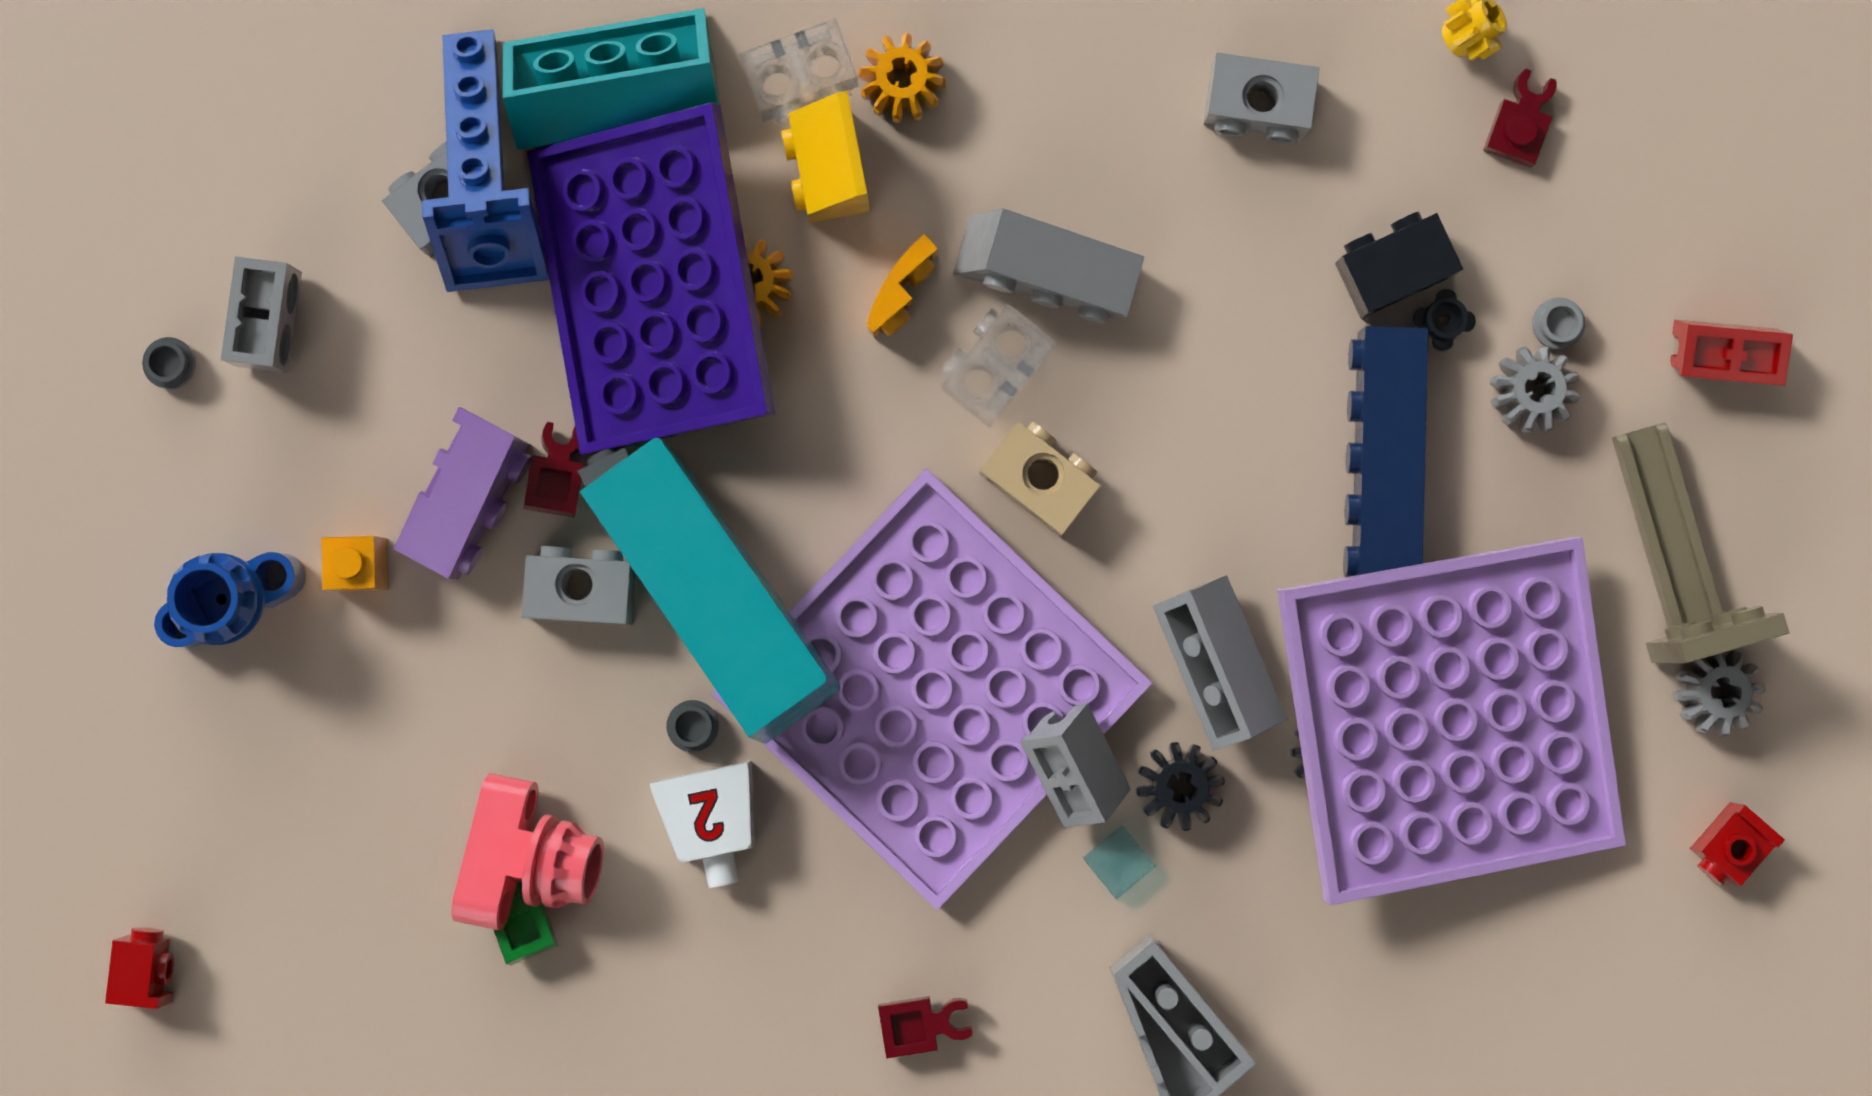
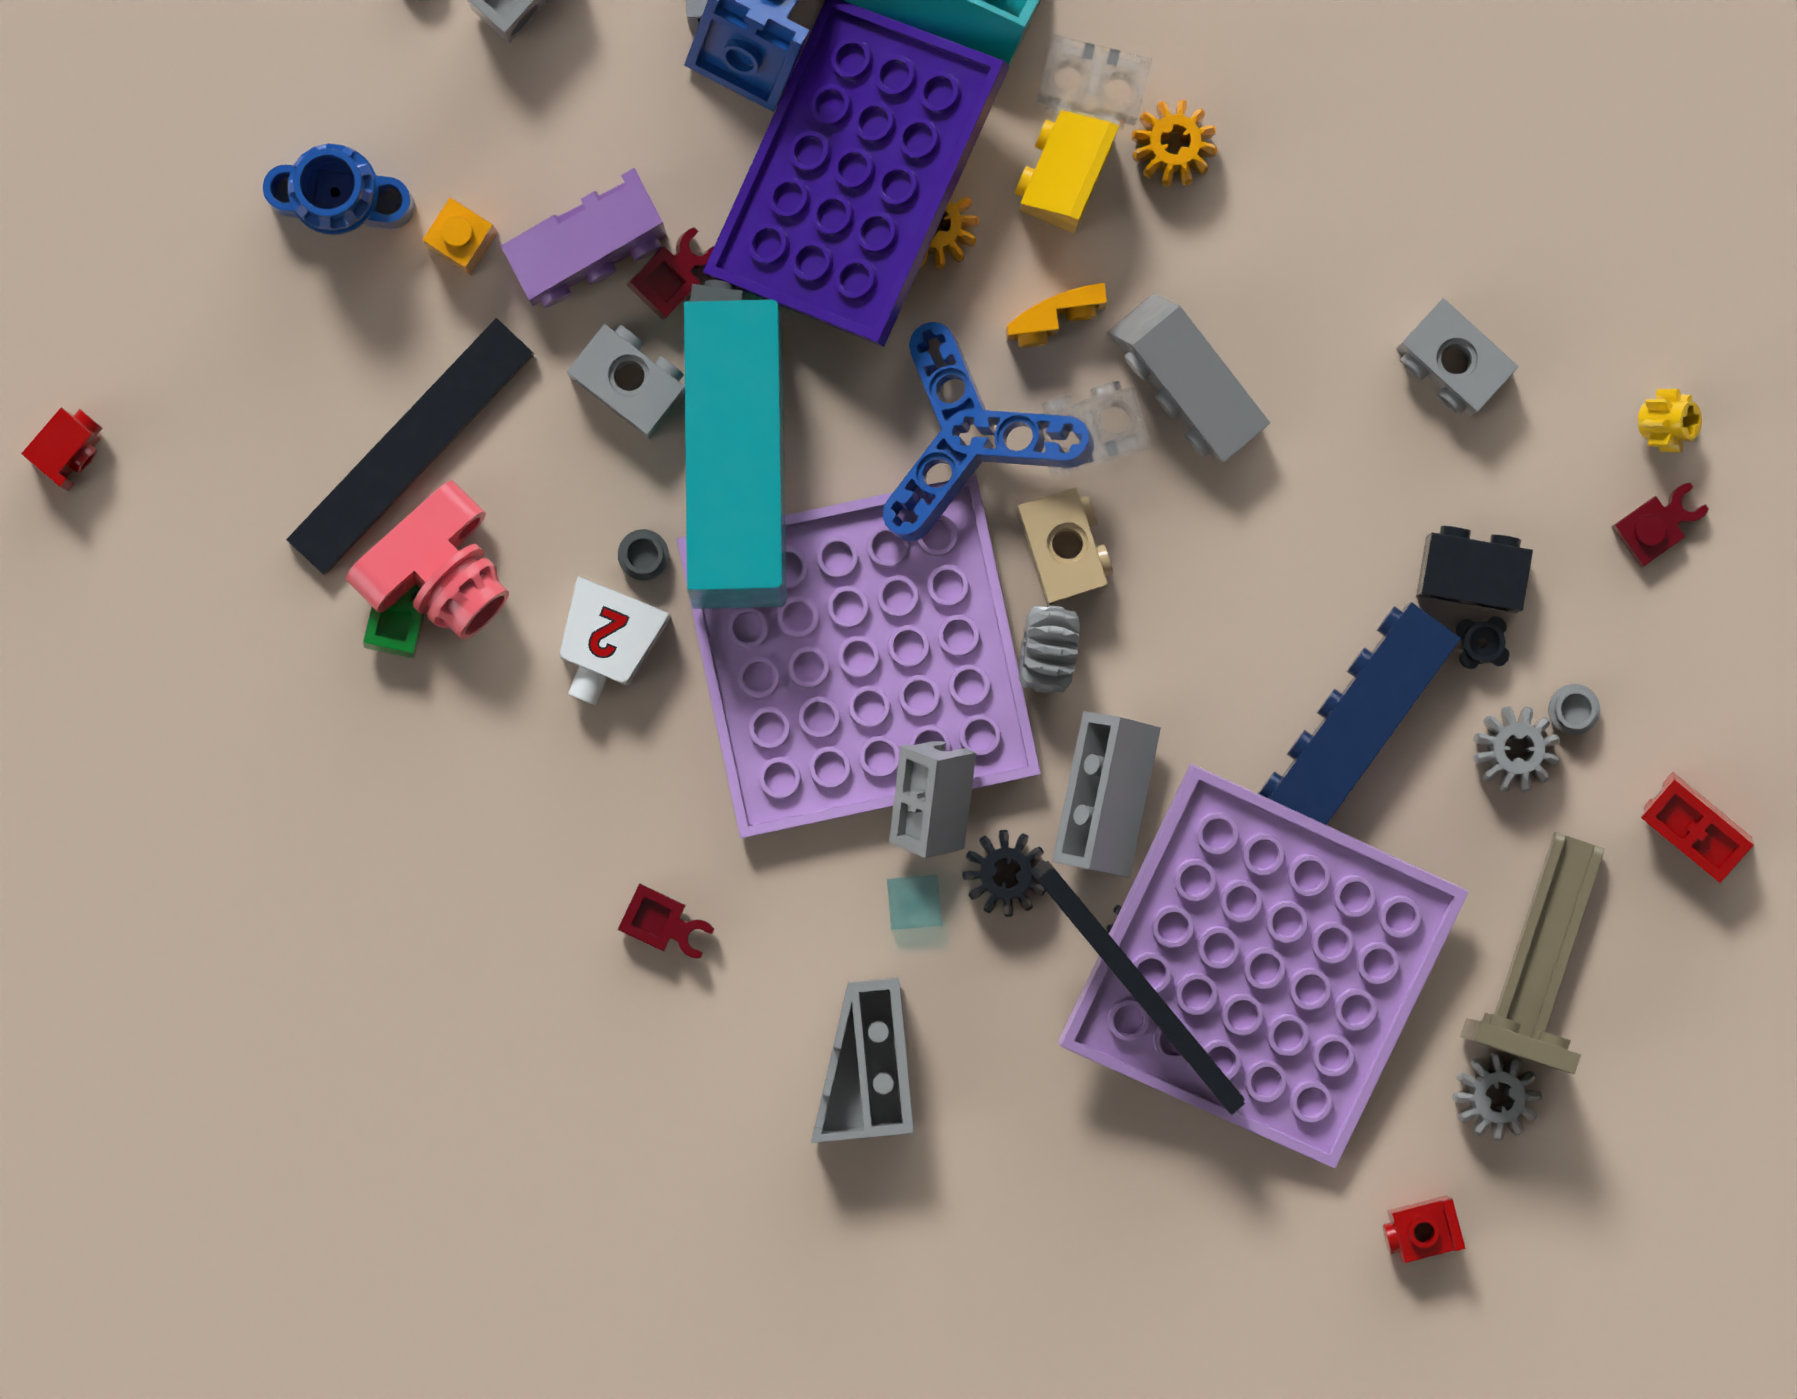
camera: 25 degrees right, 0 degrees up
(434, 769) = (410, 446): none -> black tile
(890, 460) = (952, 450): none -> blue piece
(1088, 573) = (1049, 649): none -> light grey gear
(1363, 811) = (1138, 986): none -> black tile

